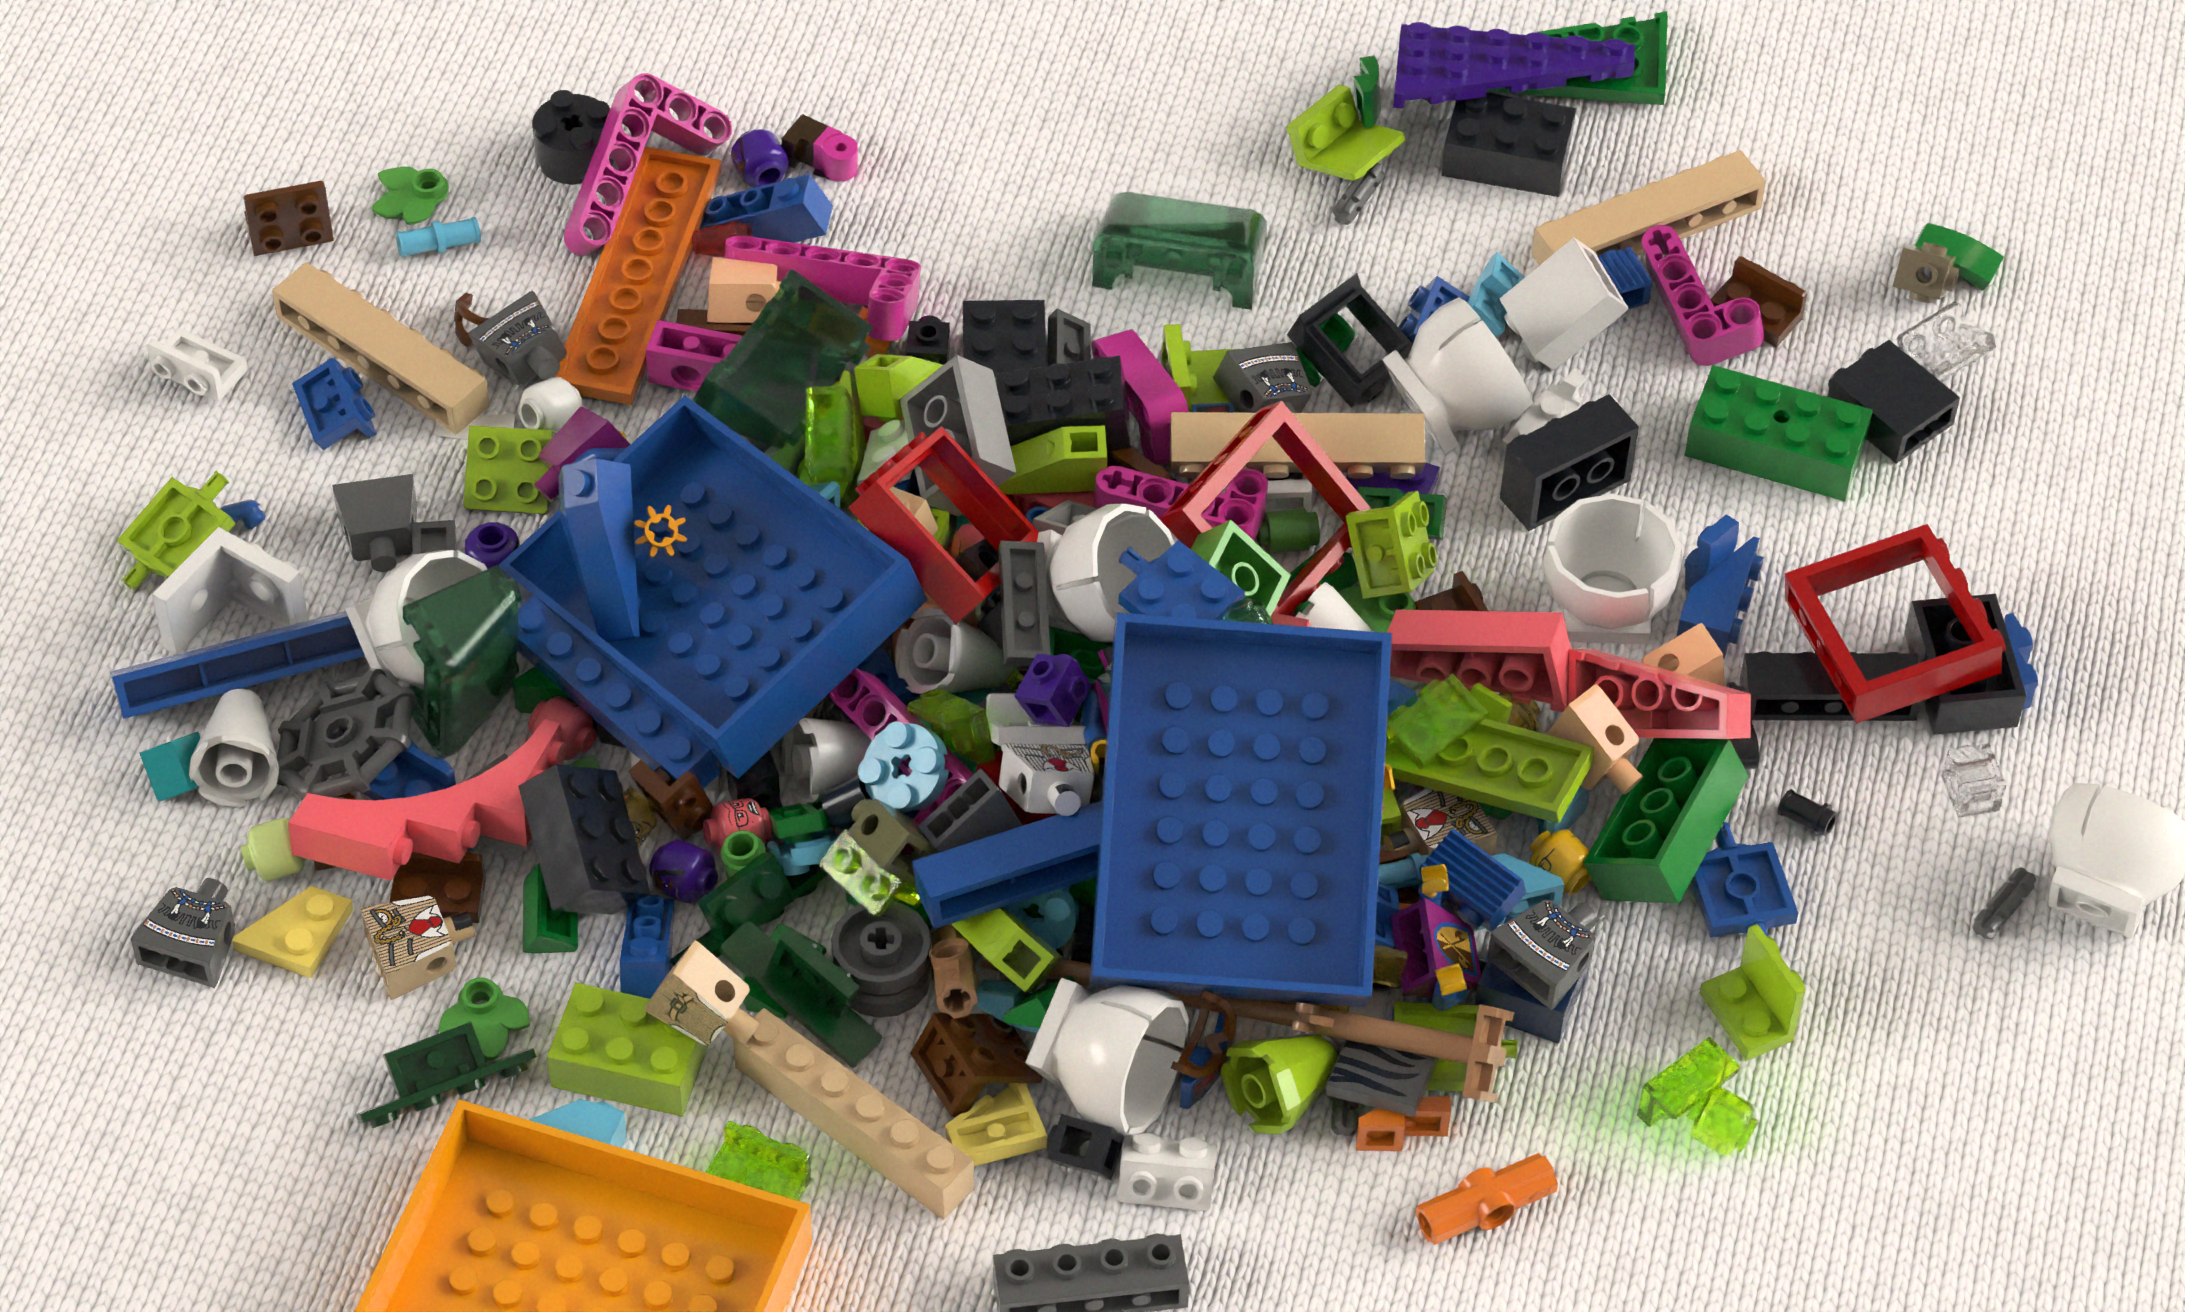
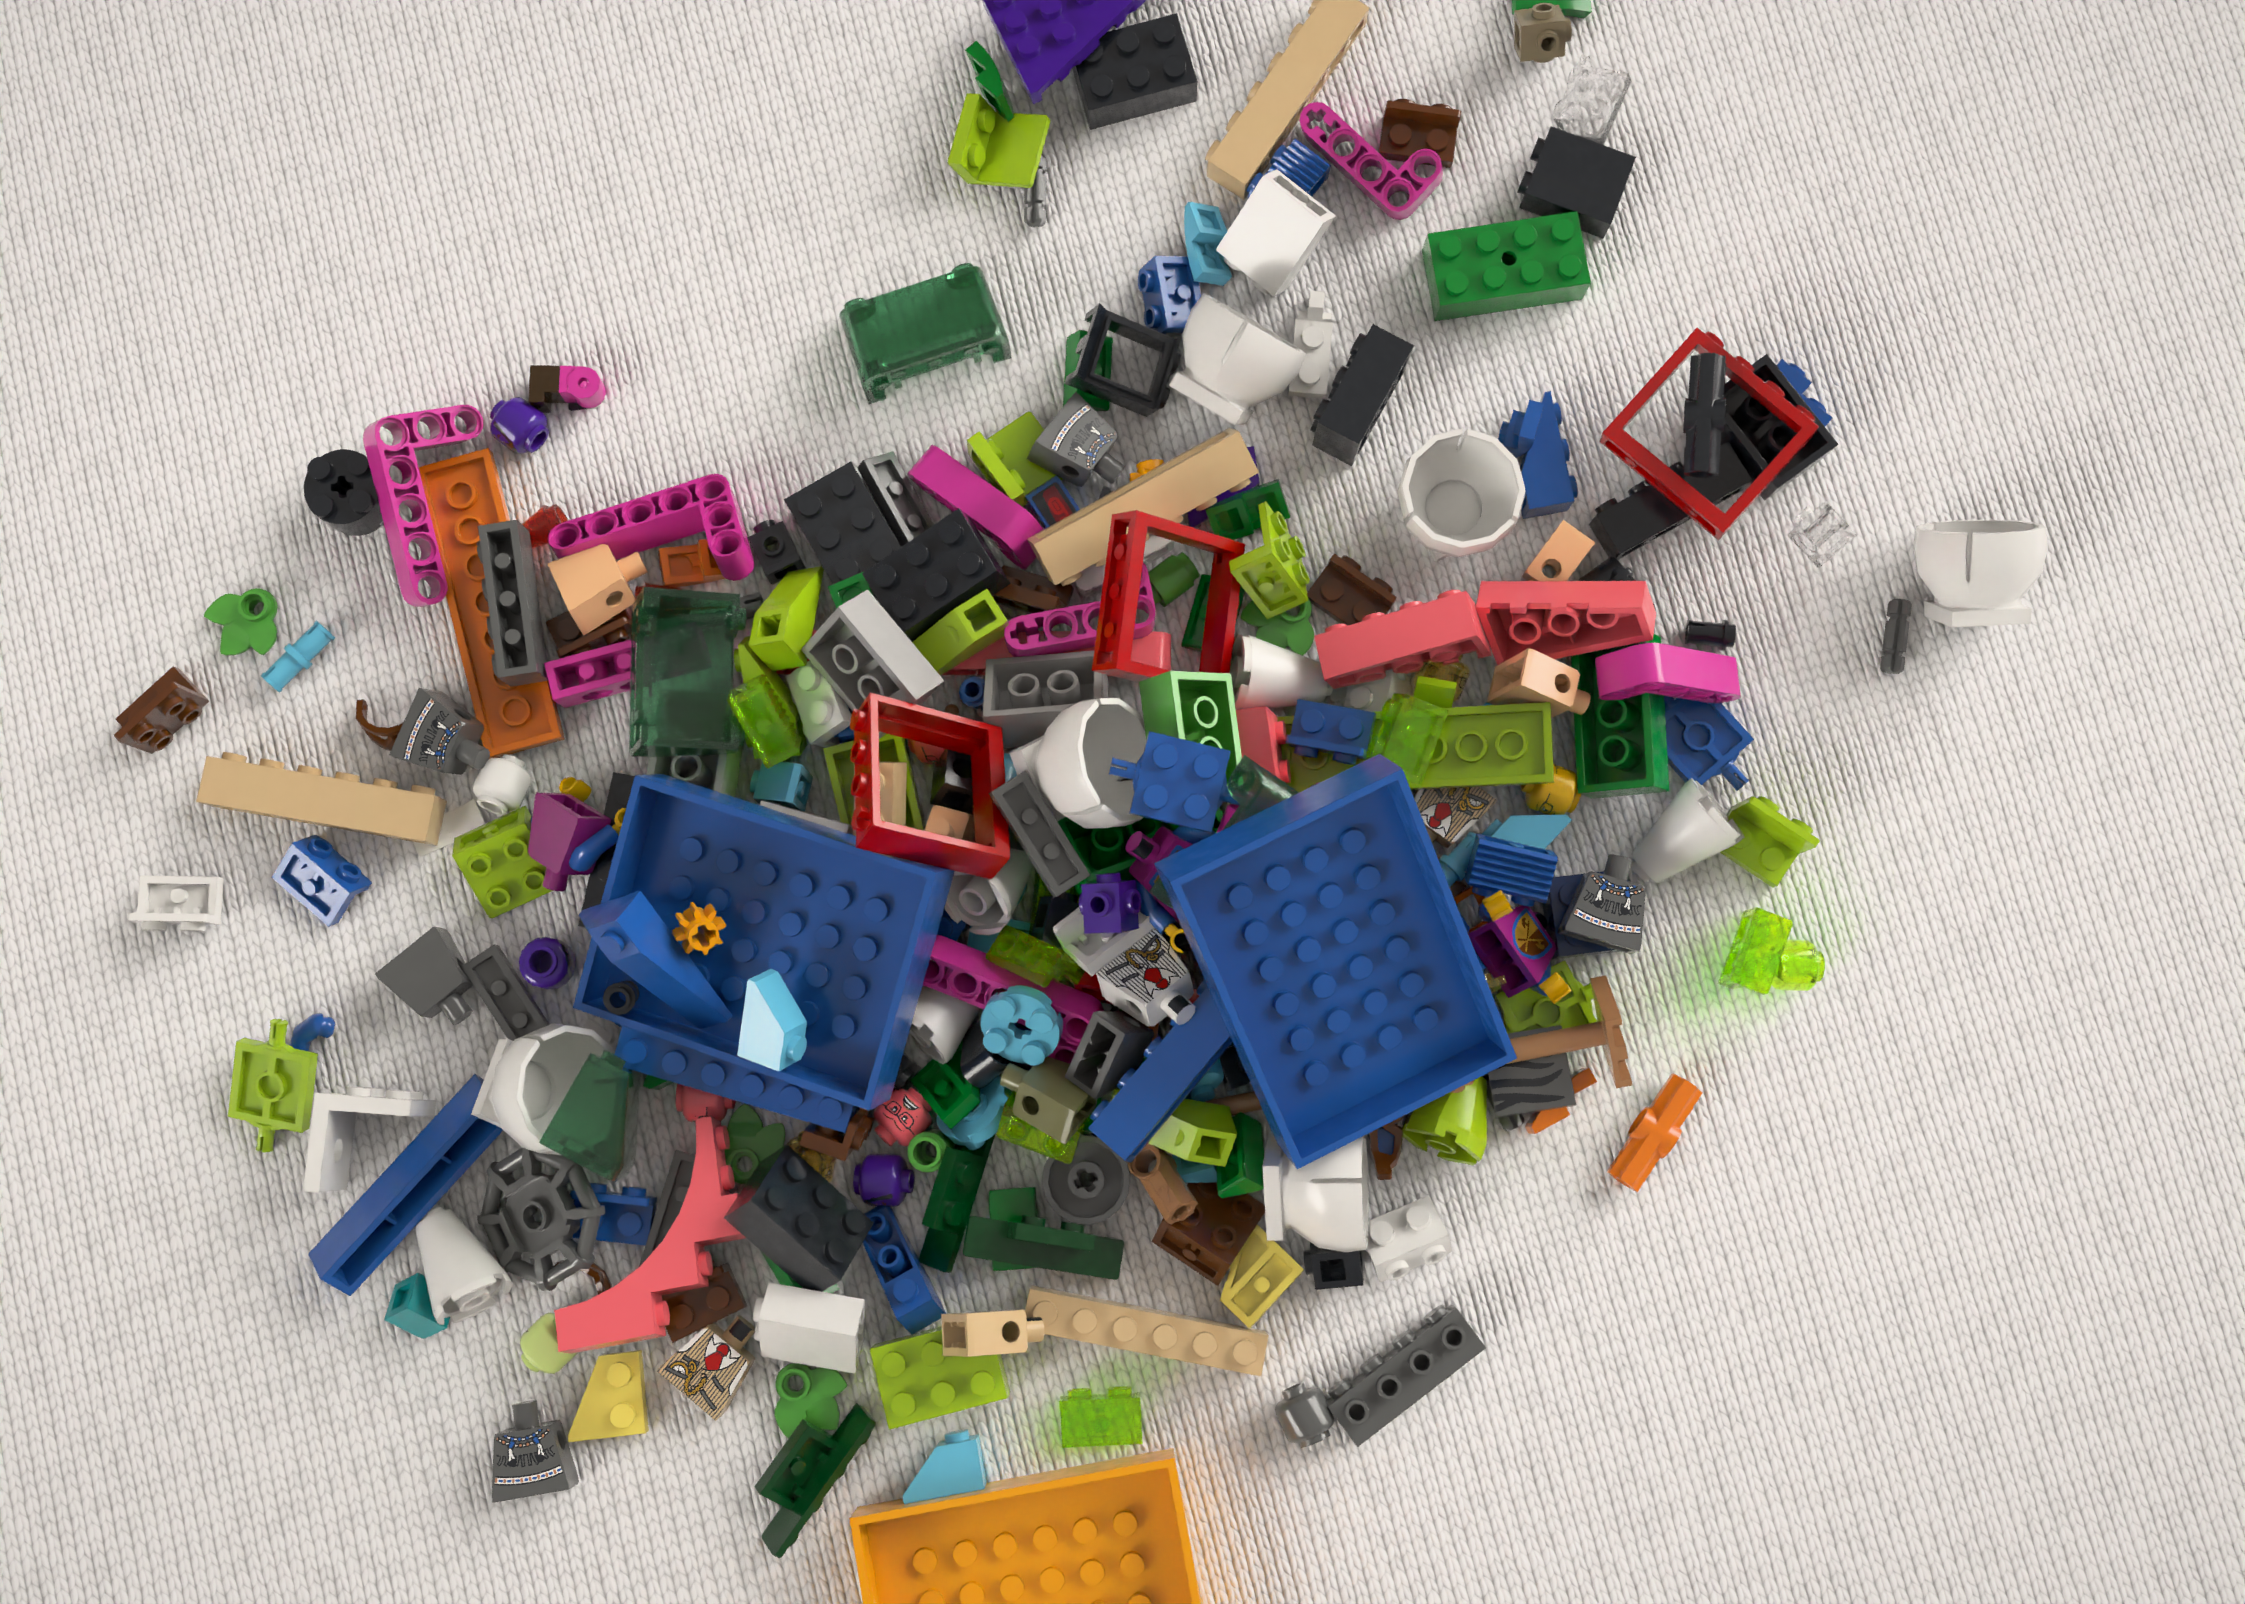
camera: 25 degrees left, 30 degrees up
(531, 941) = (810, 1327): none -> white brick
(547, 575) = (613, 1001): none -> black pin
(661, 265) = (512, 603): none -> dark grey brick
(674, 632) = (771, 1023): none -> medium azure slope
(777, 211) = (562, 478): blue slope -> none
(964, 1262) = (1304, 1415): none -> dark grey head
(1672, 950) = (1685, 834): none -> white cone
(1738, 784) = (1667, 672): none -> dark pink beam
(1889, 587) = (1704, 415): none -> black piece

